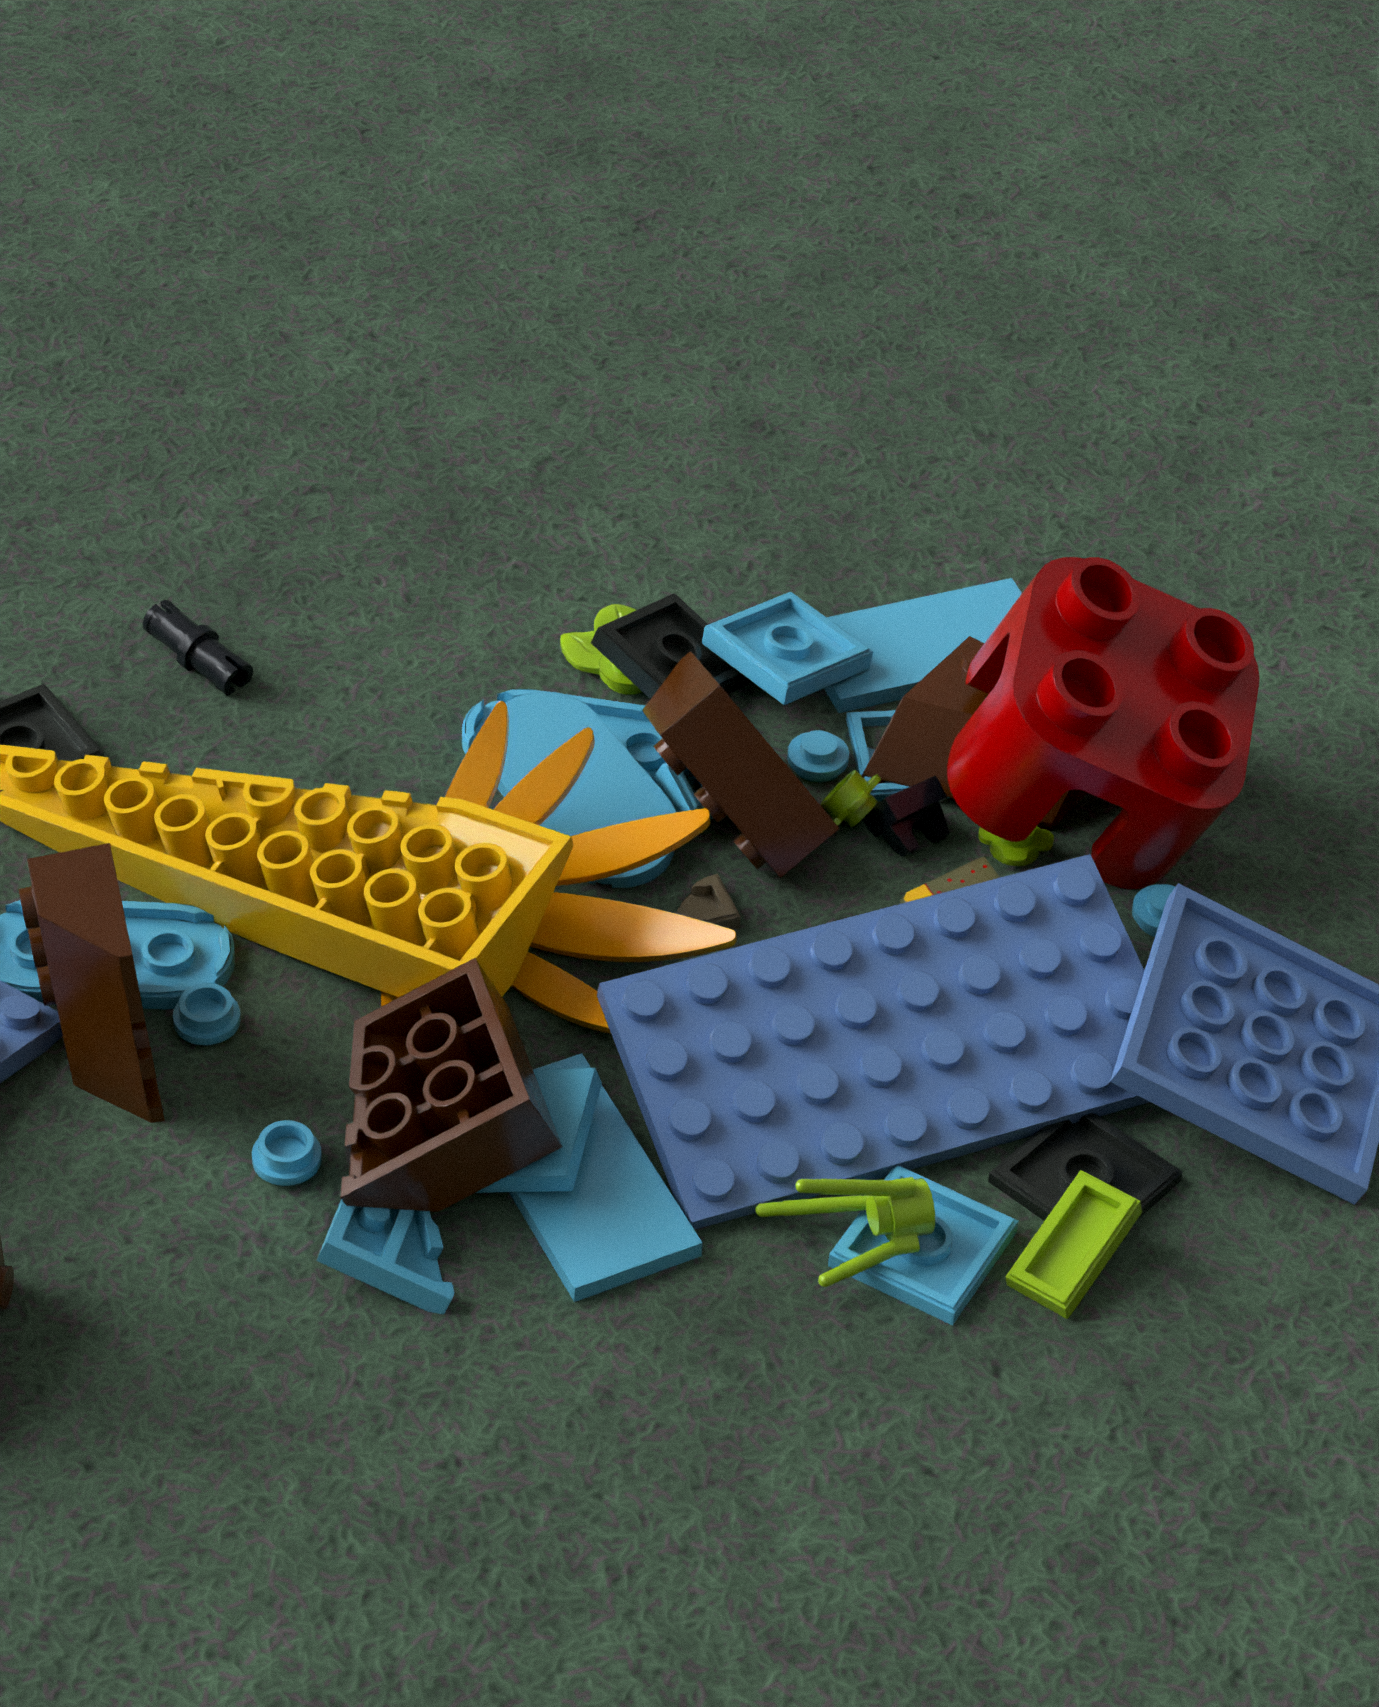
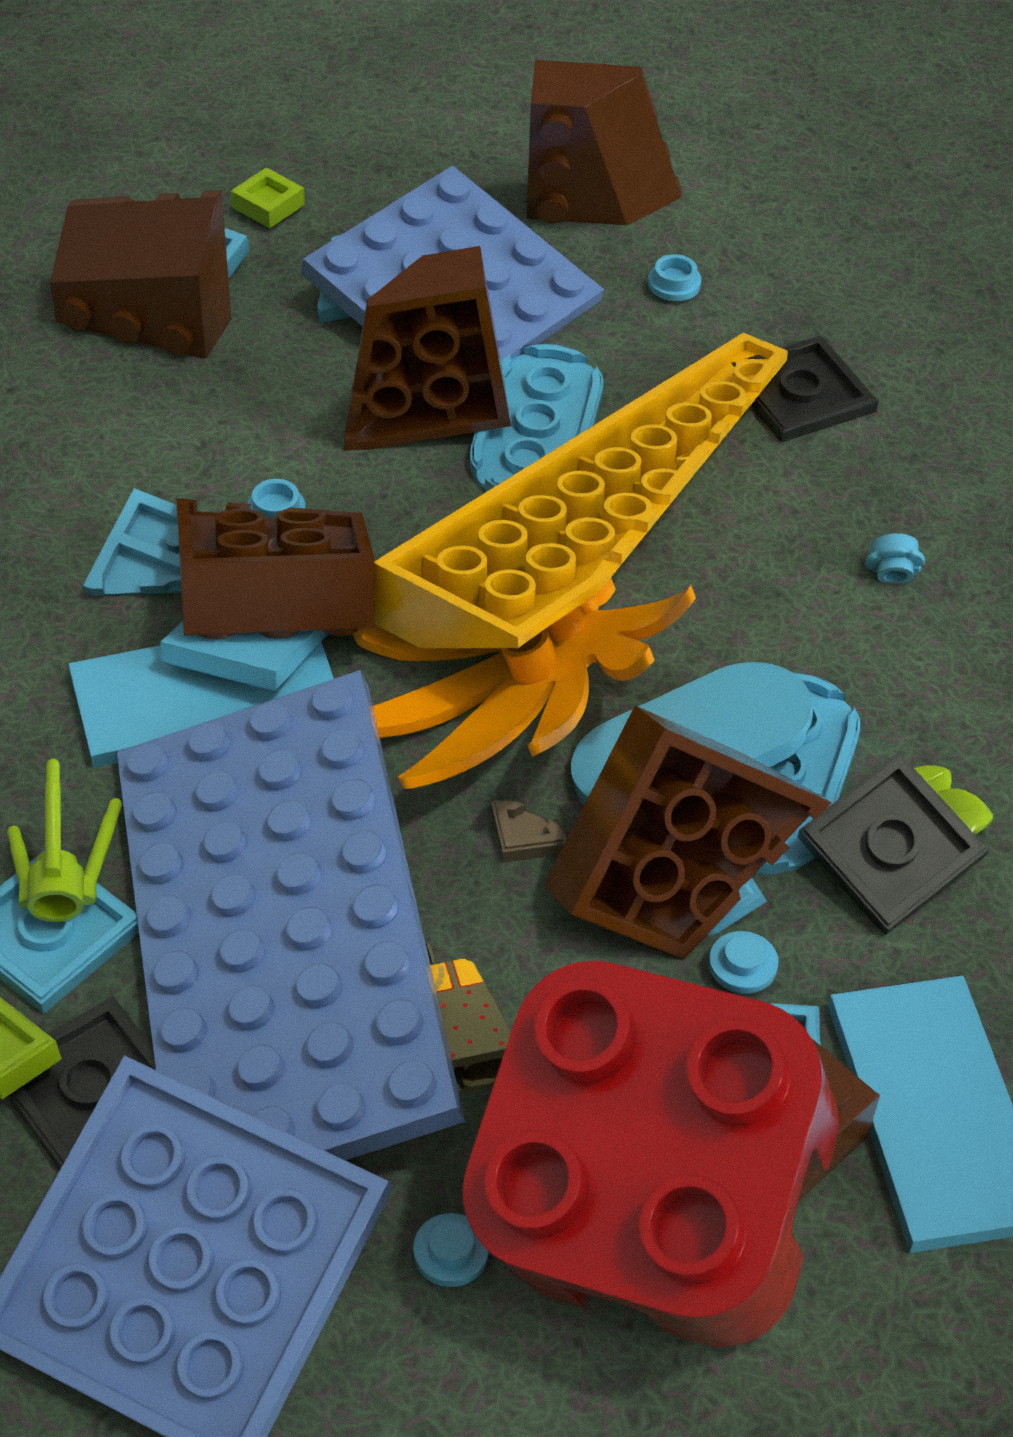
camera: 100 degrees right, 5 degrees up
(197, 647) = (926, 497): black pin -> none
(206, 1014) = (446, 472): medium azure plate -> none
(291, 667) = (895, 558): none -> medium azure plate
(787, 647) = (898, 942): medium azure tile -> none
(851, 799) = (654, 959): lime plate -> none

